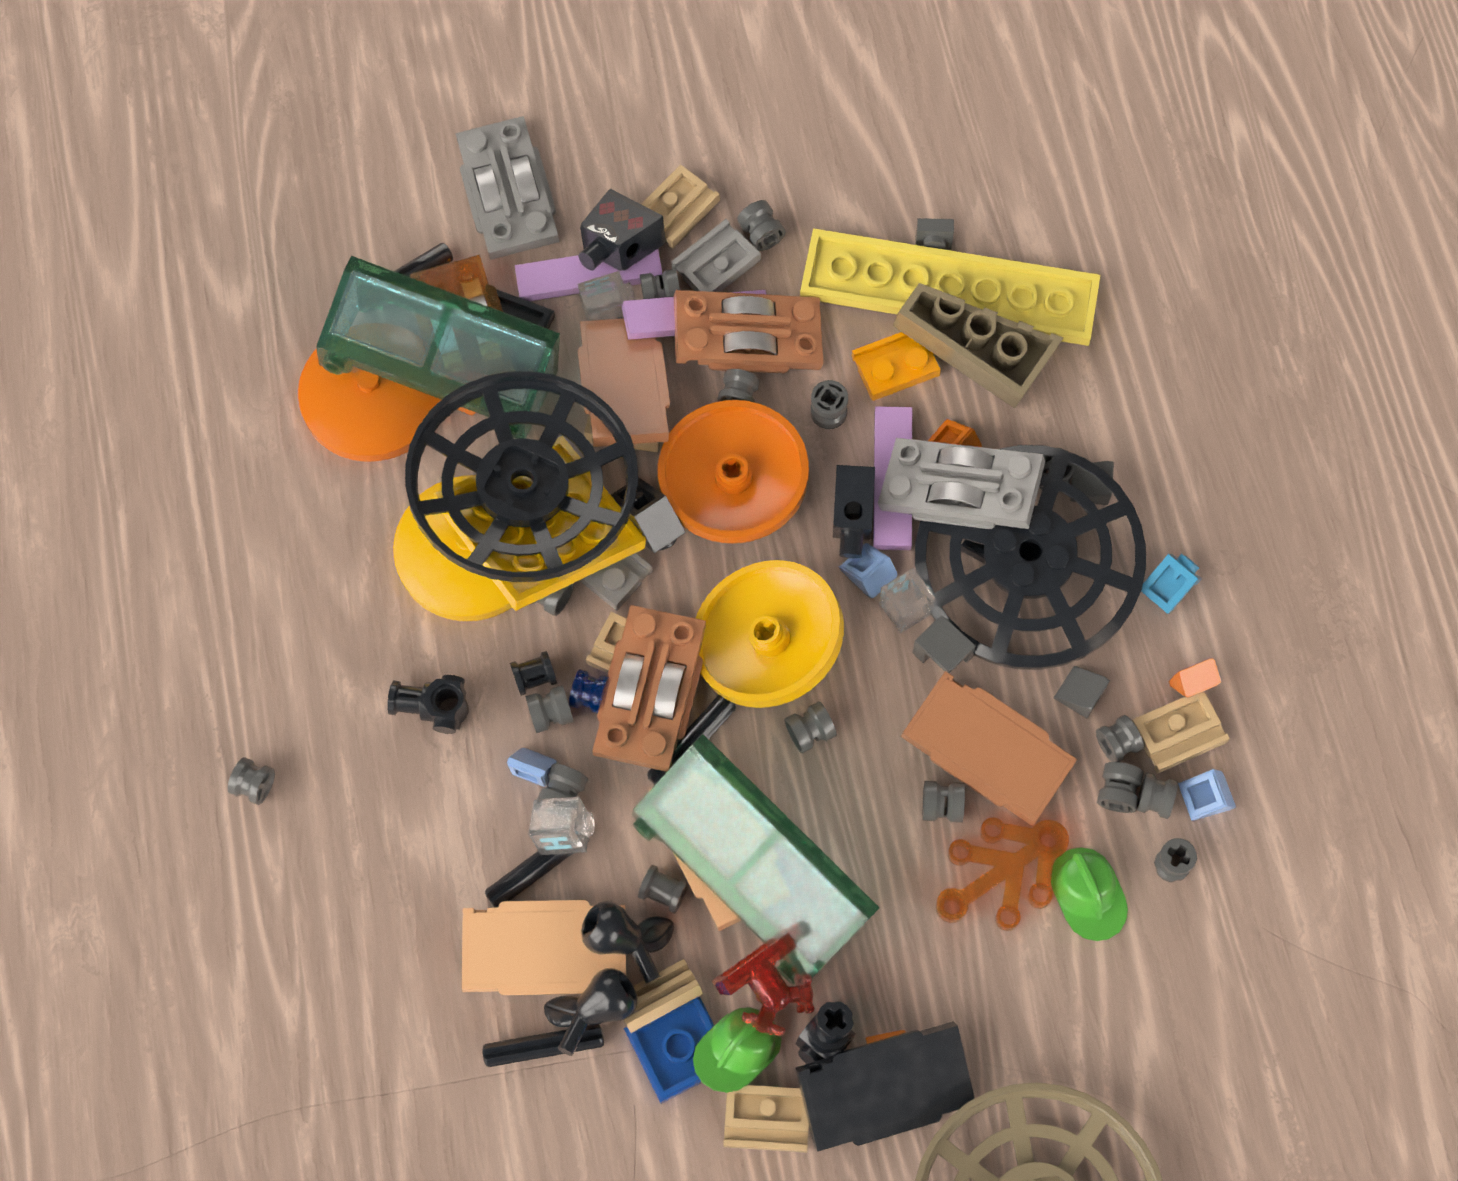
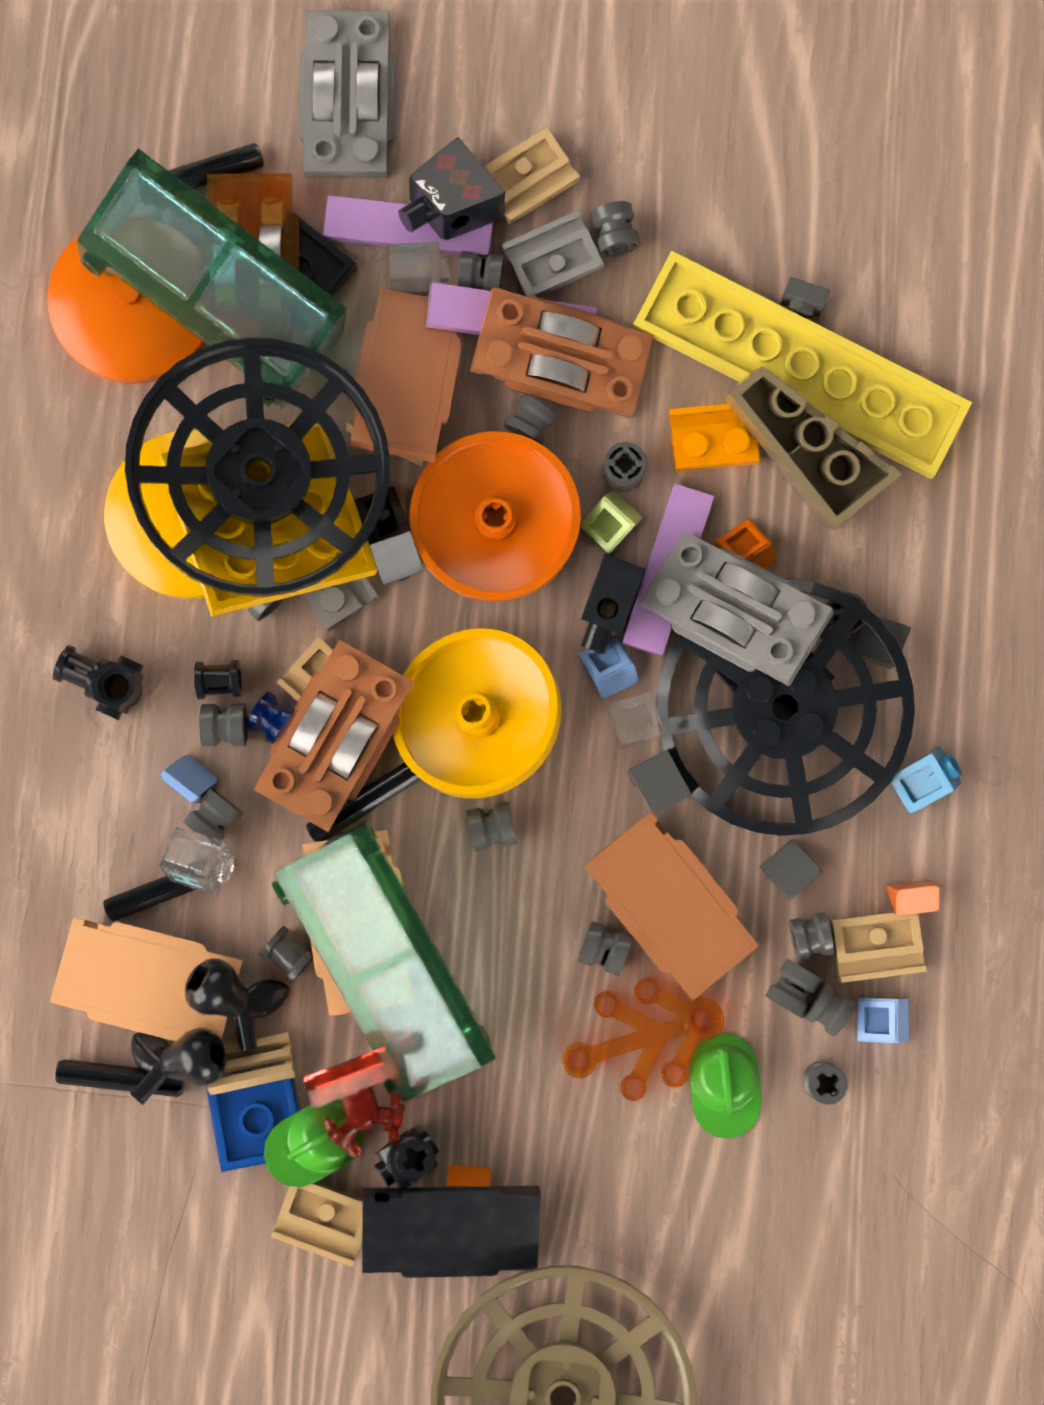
camera: 10 degrees right, 15 degrees up
(831, 451) = (611, 521): none -> yellowish green slope

